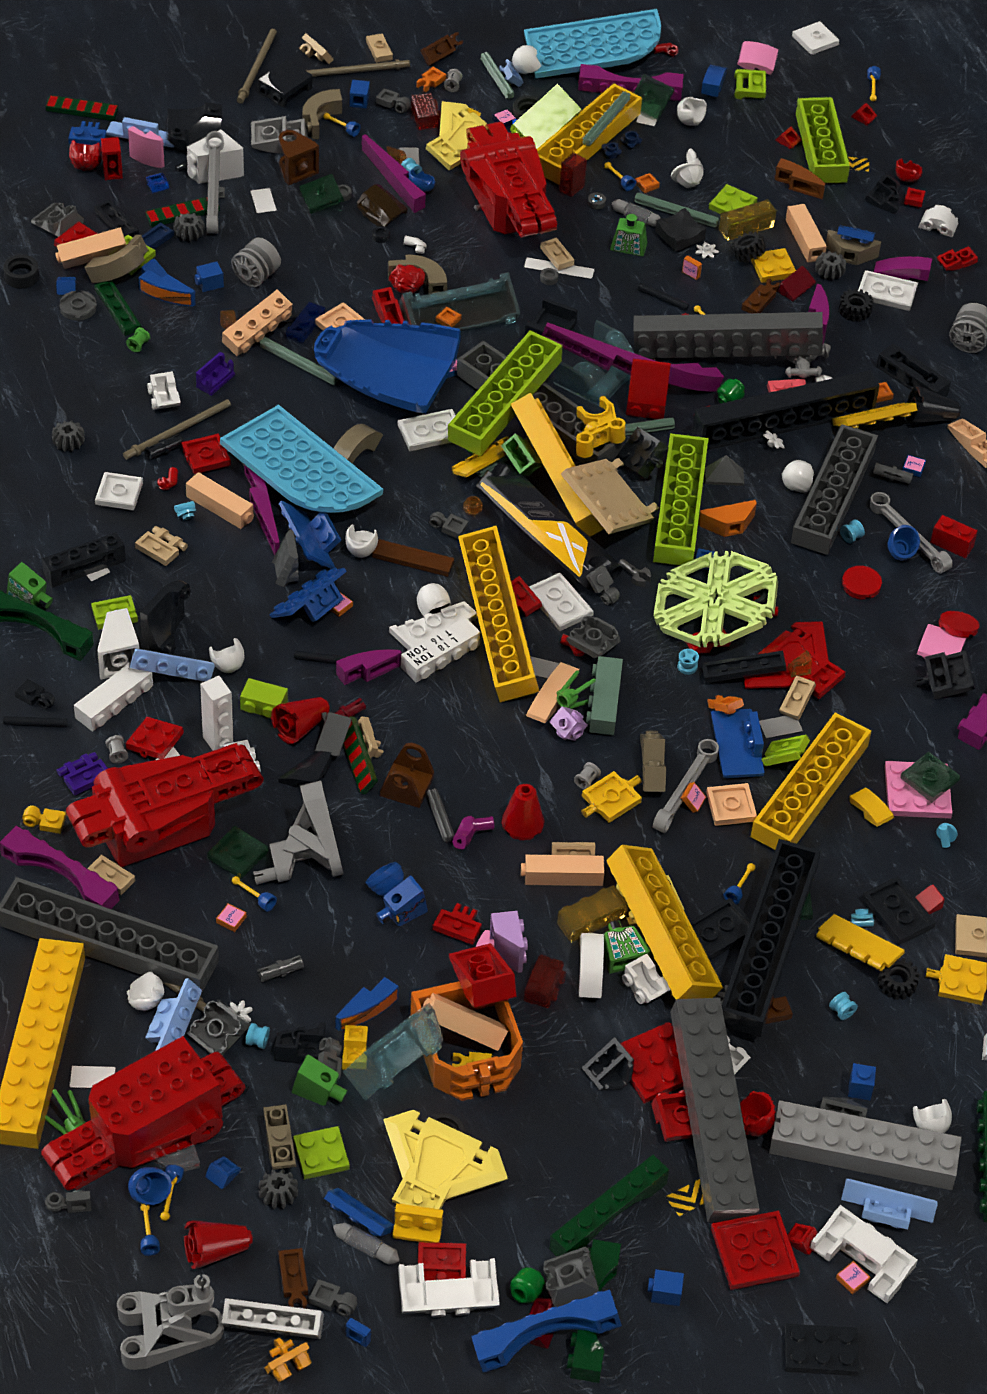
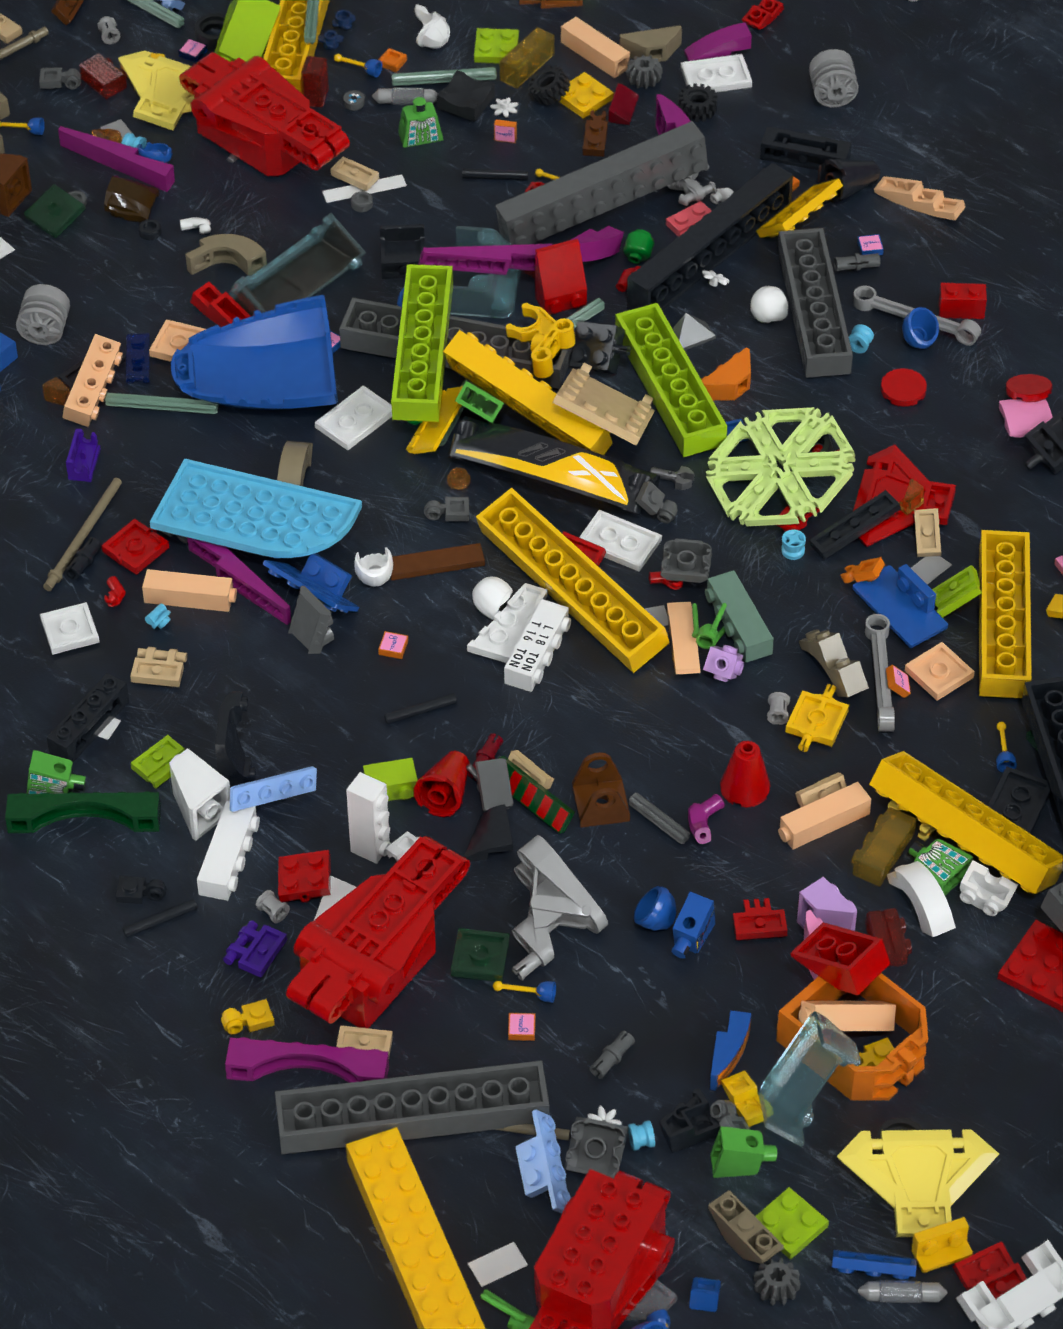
camera: 25 degrees left, 0 degrees up
(146, 992) = (494, 1146): white hair -> none
(163, 391) = (40, 498): white cylinder -> none
(228, 659) = (323, 753): white hair -> none
(315, 597) = (365, 644): blue bracket -> none
(359, 93) = (17, 85): blue brick -> none
(367, 665) = (472, 696): magenta slope -> none
(407, 278) = (219, 265): red hair -> none
(432, 77) = (83, 36): orange plate -> none
(448, 317) = (289, 289): orange tile -> none
(610, 1067) = (1013, 992): black slope -> none
(863, 235) = (664, 26): blue hinge -> none

